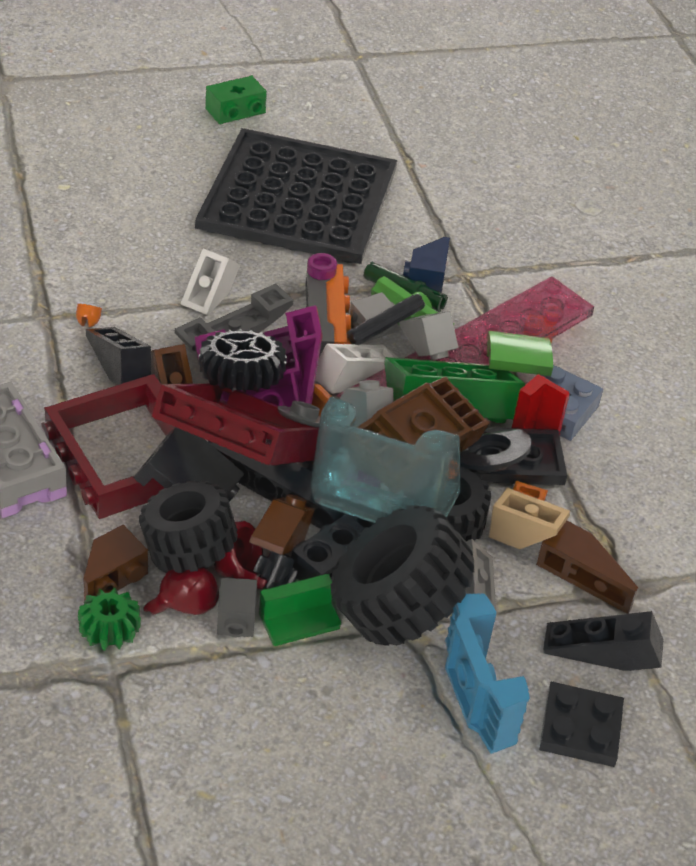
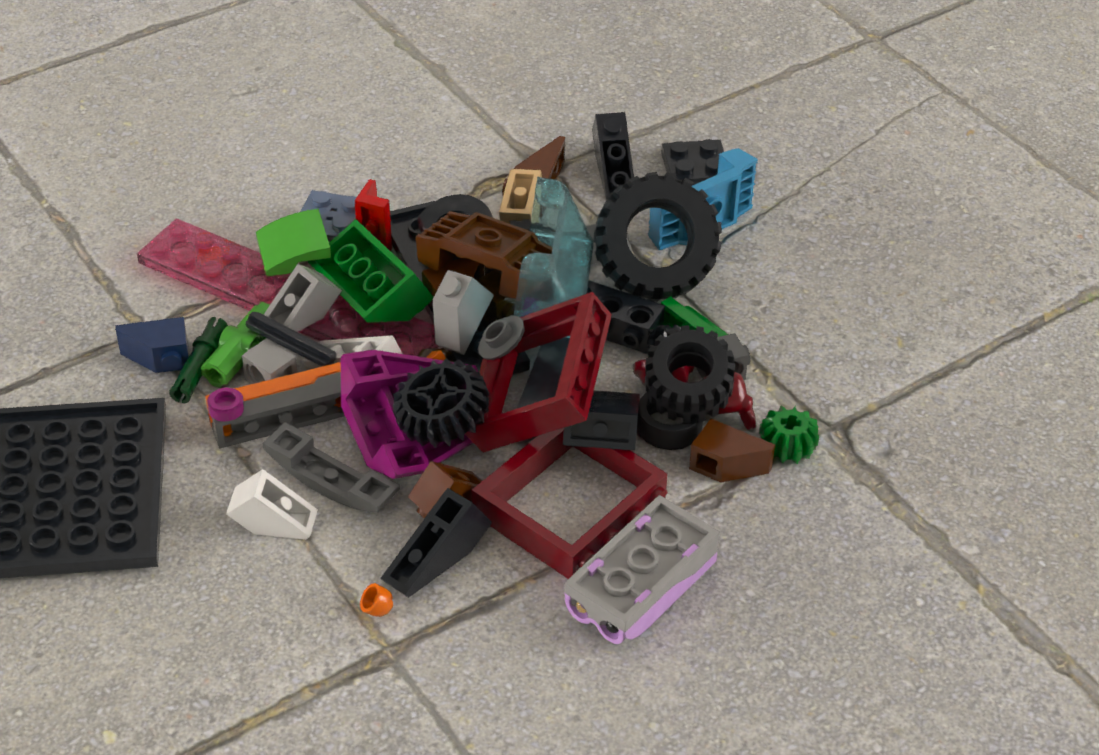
camera: 105 degrees left, 0 degrees up
(283, 524) = (628, 342): reddish brown slope -> none

